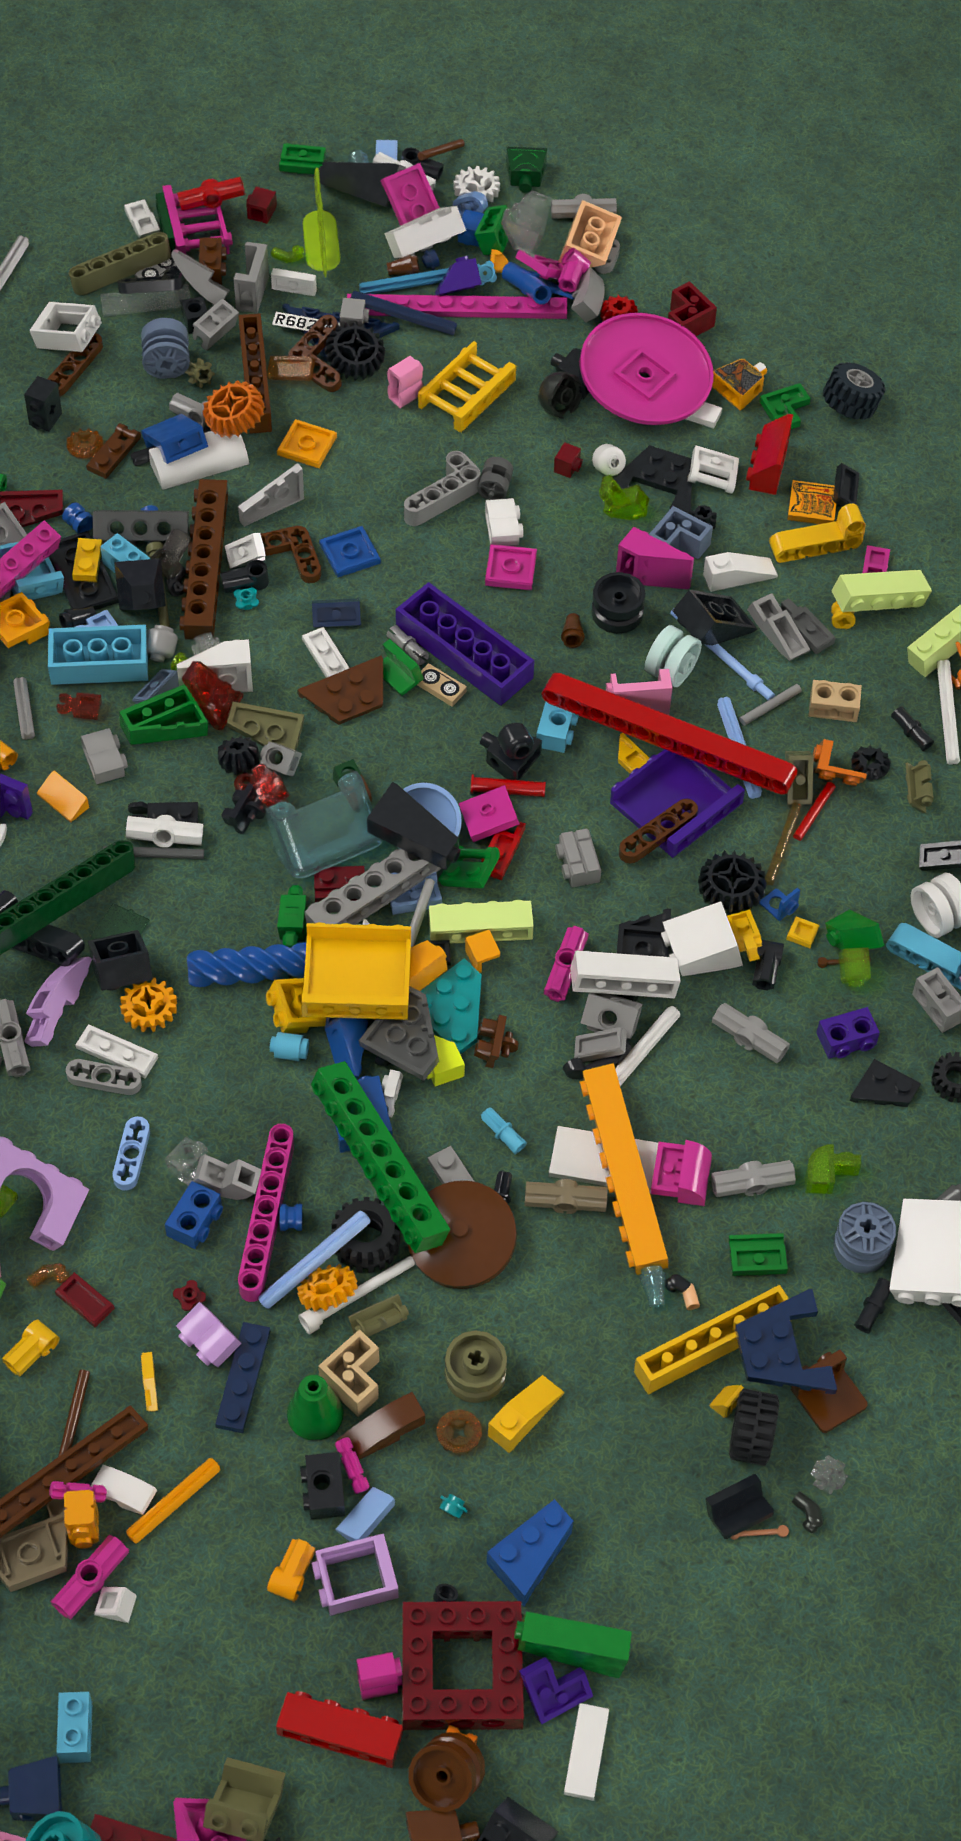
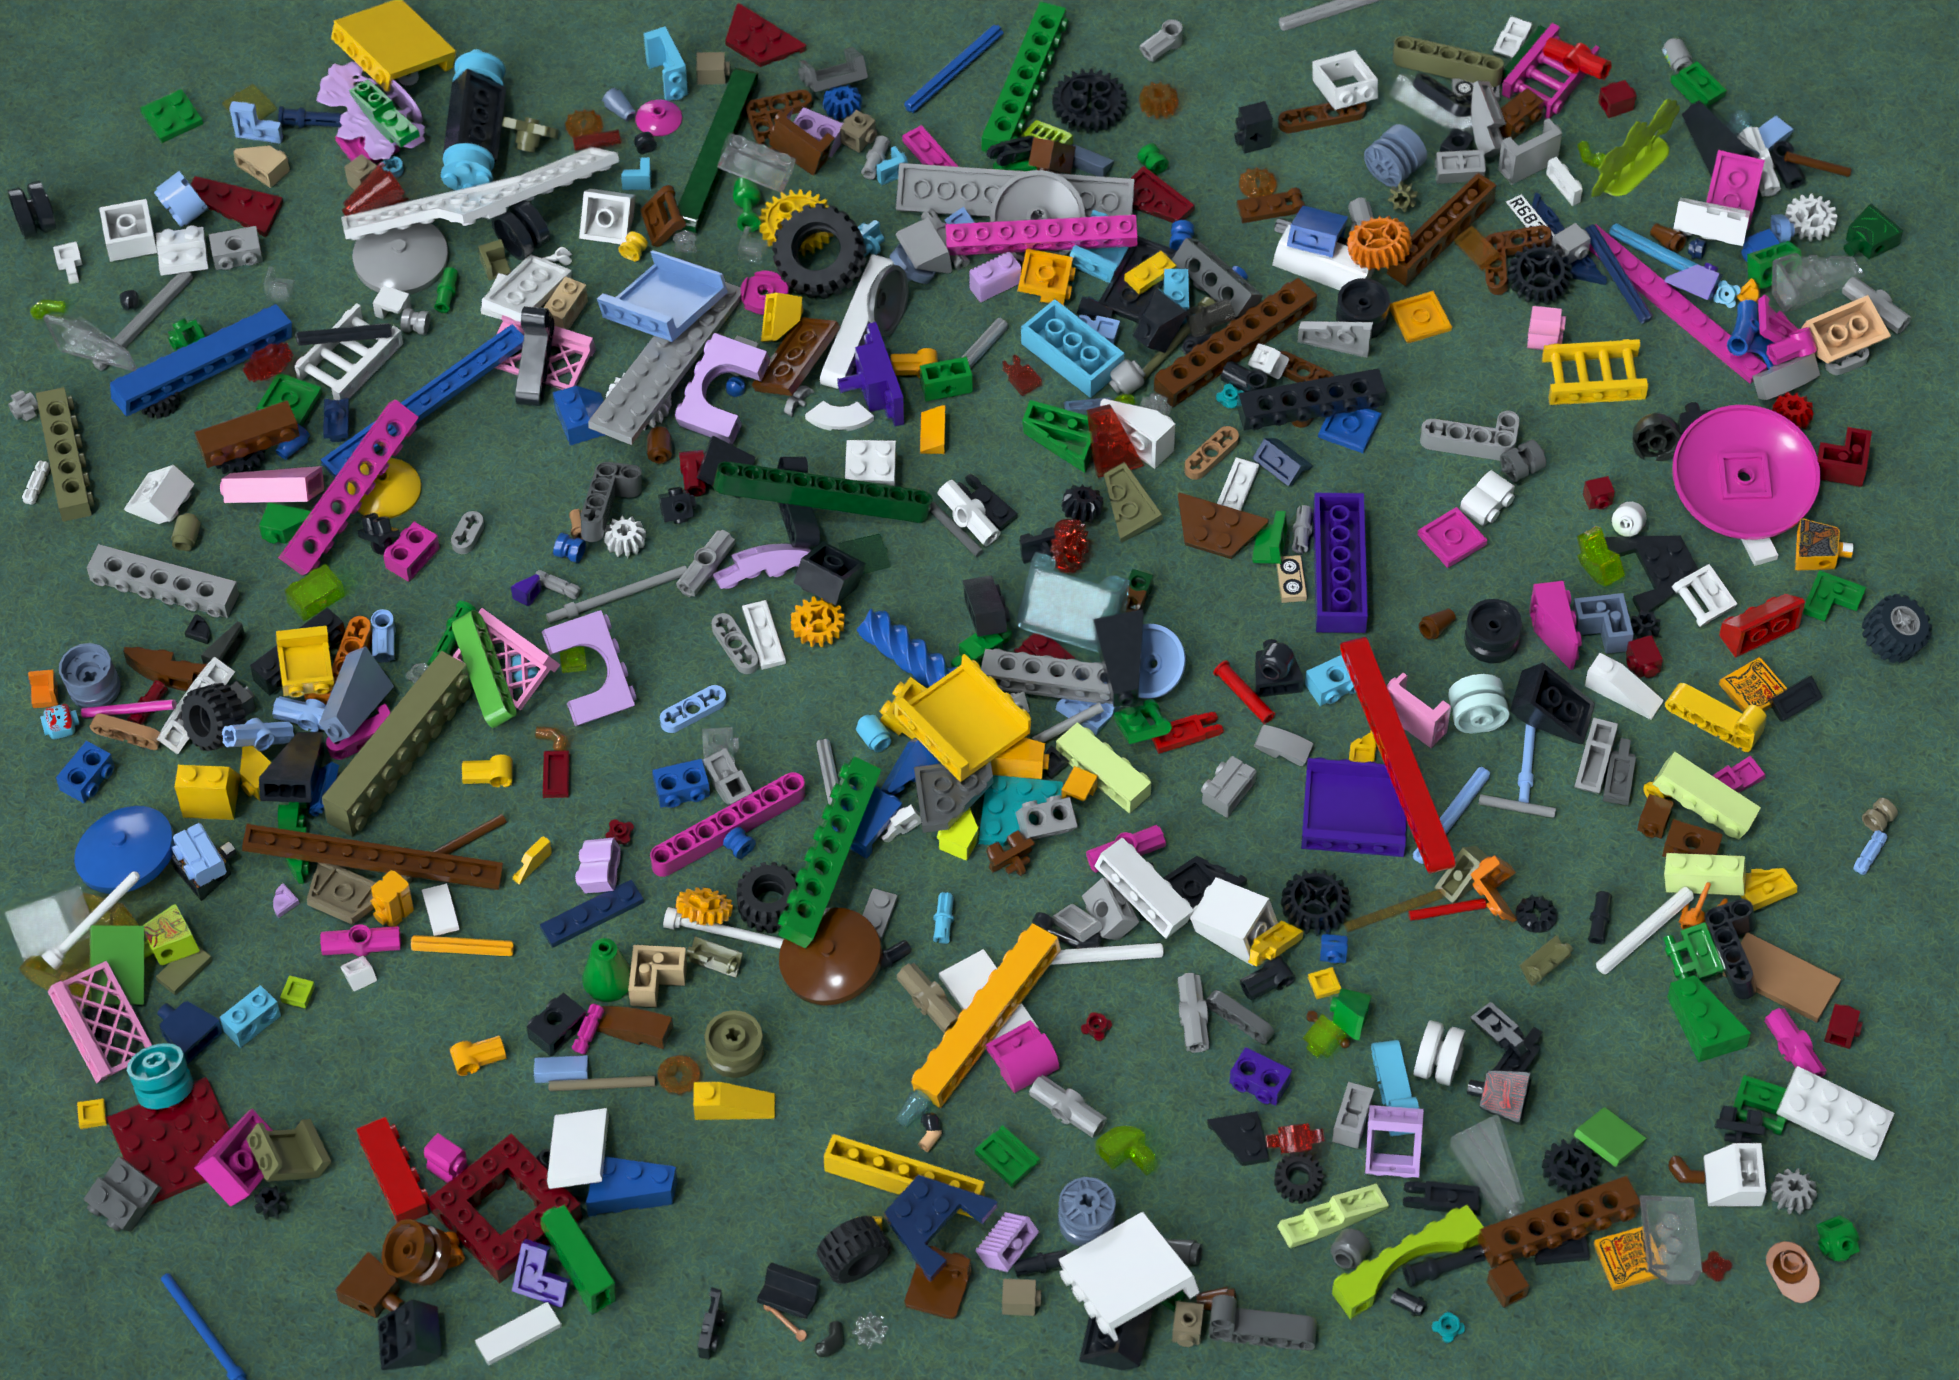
camera: 50 degrees right, 0 degrees up
(31, 751) = (946, 379): none -> green brick
(49, 856) = (871, 461): none -> white brick
(58, 1489) = (419, 894): dark pink axle -> none
(87, 1668) = (297, 992): none -> lime plate
(103, 755) = (992, 424): light grey brick -> none
(264, 882) = (985, 606): none -> black brick
(265, 149) = (1677, 54): none -> light grey brick
(265, 461) = (1364, 302): none -> black wheel
(285, 639) = (1213, 443): none -> medium nougat beam
(290, 758) = (1107, 531): light grey brick -> none
(290, 1105) = (827, 766): none -> light grey axle
(310, 552) = (1300, 394): none -> black brick
(314, 1259) = (713, 879): light blue axle -> none
(348, 1551) = (531, 1108): lavender window -> none
(411, 1494) = (602, 1083): none -> dark tan bar
(453, 1505) = (617, 1113): teal plate -> none
(466, 1561) = (578, 1148): none -> white tile
(489, 813) = (1203, 698): dark pink plate -> none
(493, 987) = (1048, 823): none -> light grey brick
(576, 797) = (1283, 743): none -> light grey slope
(654, 827) = (1308, 812): reddish brown beam -> none
(698, 1098) = (1096, 1019): none -> dark red plate
(720, 1589) = (712, 1321): none -> black wing
(727, 538) = (1643, 657): none -> dark red brick
(787, 1005) = (1238, 1014): none -> dark grey beam
(835, 700) = (1561, 848): tan brick -> none
(838, 1314) = (1007, 1241): none -> lavender brick
(863, 633) = (1655, 816): none -> reddish brown brick
(893, 1344) = (1020, 1297): none -> dark tan brick
(904, 630) = (1684, 835): none -> reddish brown brick
(928, 1050) = (1295, 1138): none -> clear red gear

